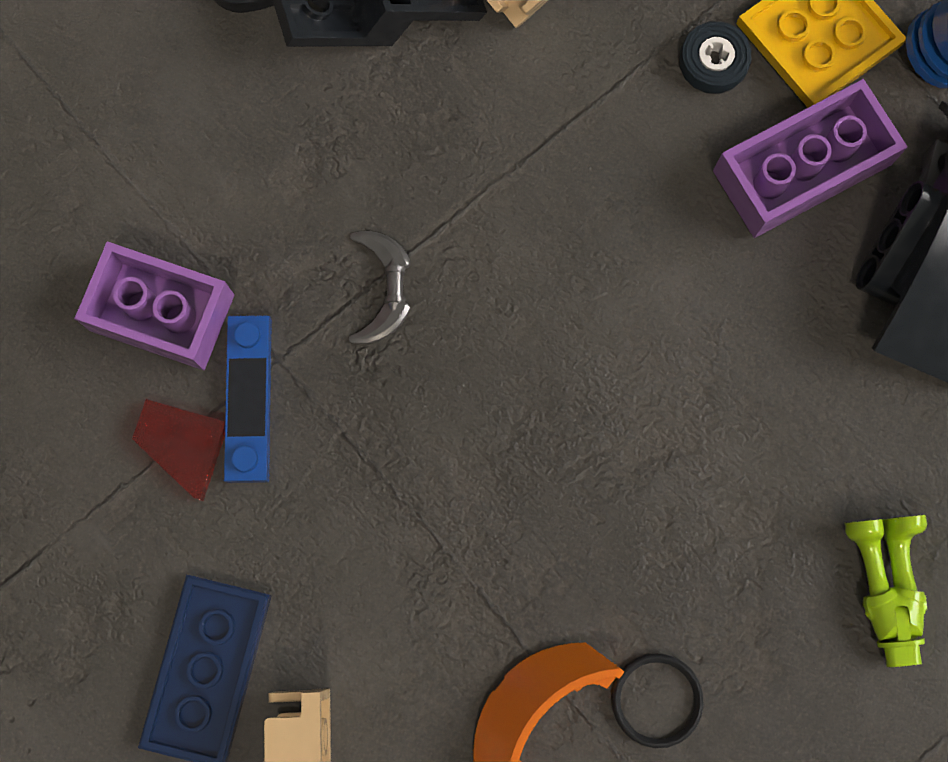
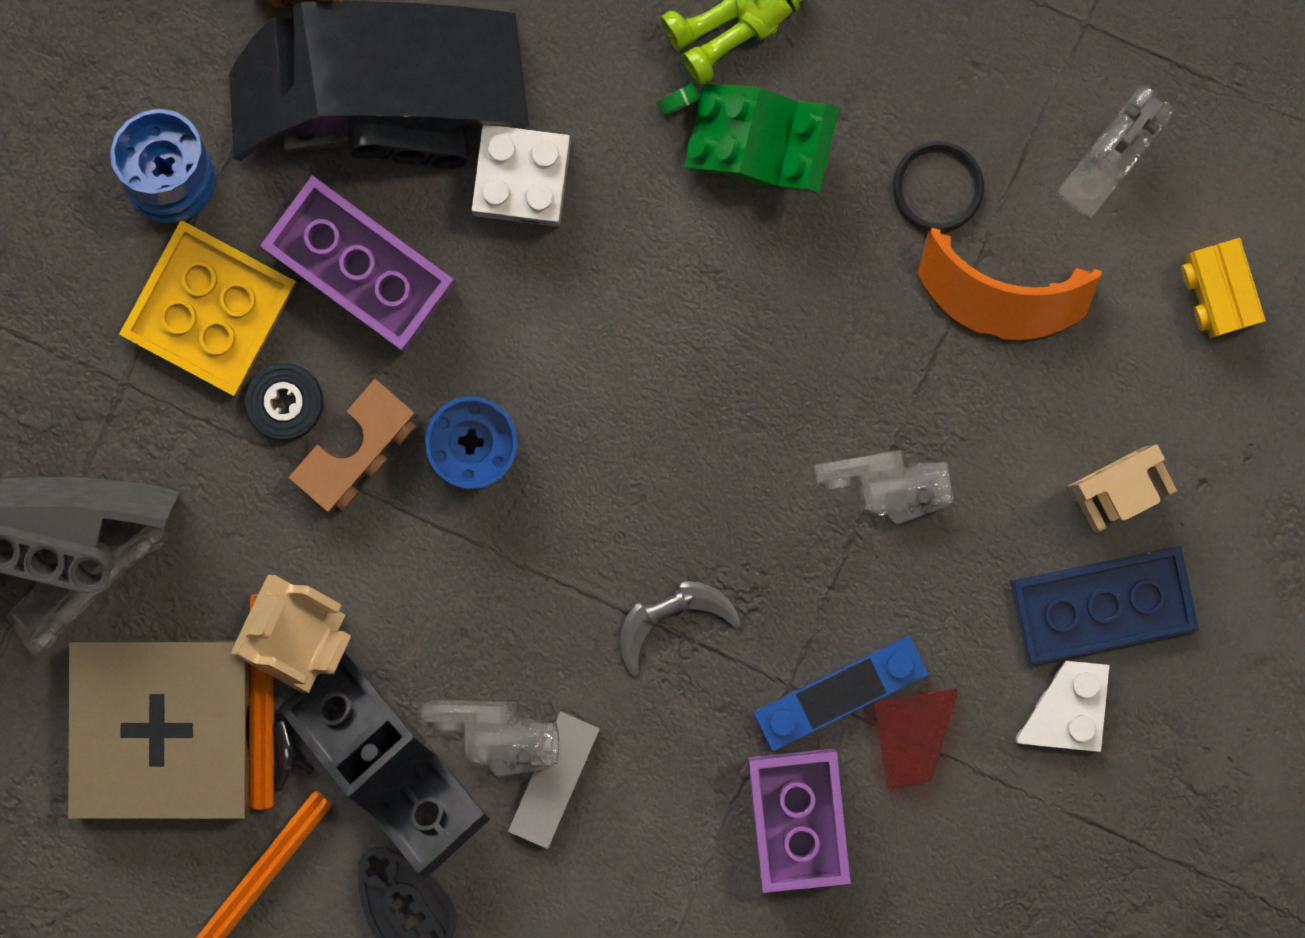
camera: 120 degrees left, 10 degrees up
(130, 594) = (1070, 709): none -> white wing
(297, 131) = (552, 788): none -> light grey tile
(358, 95) = (495, 735): none -> clear plate
(405, 523) = (889, 486): none -> clear plate
(608, 158) = (489, 460): none -> blue wheel
(662, 122) = (333, 479): none -> medium nougat arch
(775, 555) = (761, 137): none -> green bracket
(829, 329) = (521, 175): none -> white brick
(839, 497) = (678, 100): none -> green tile

